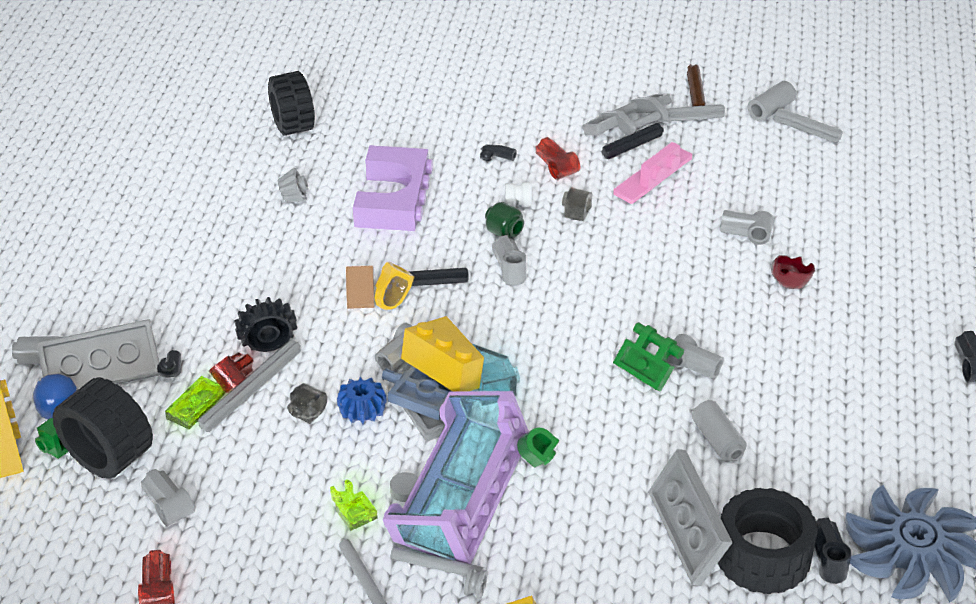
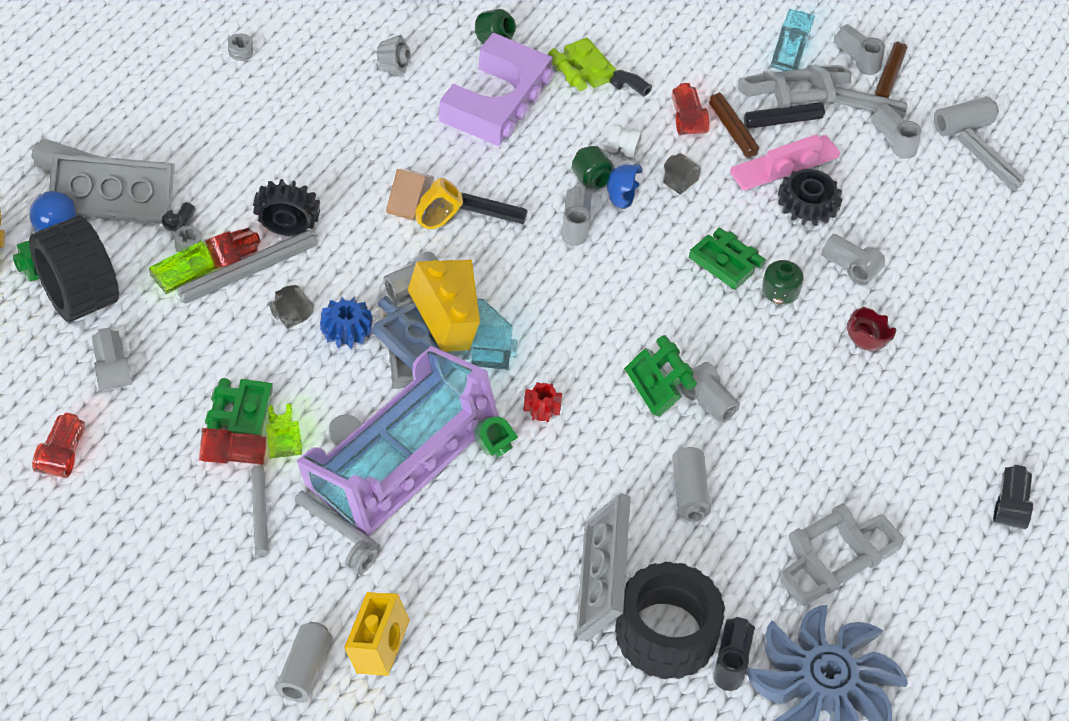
camera: 15 degrees right, 10 degrees up
(156, 219) = (243, 40): none -> light grey bush
(183, 375) = (185, 233): none -> light grey bush
(307, 532) = (225, 446): none -> clear red piece
(313, 498) = (249, 407): none -> green plate
(363, 138) = (494, 21): none -> dark green head
(453, 151) = (588, 61): none -> lime plate
(535, 223) = (622, 184): none -> blue hair
(562, 408) = (542, 402): none -> red gear
(597, 159) = (734, 125): none -> reddish brown axle
(609, 85) = (792, 40): none -> clear light blue slope
(648, 255) = (722, 262): none -> green plate
(671, 77) = (865, 50): none -> light grey piece
(688, 190) = (810, 196): none -> black gear
(704, 258) = (782, 282): none -> dark green head
(732, 126) = (900, 132): none -> light grey piece
(868, 428) = (853, 535): none -> light grey bar

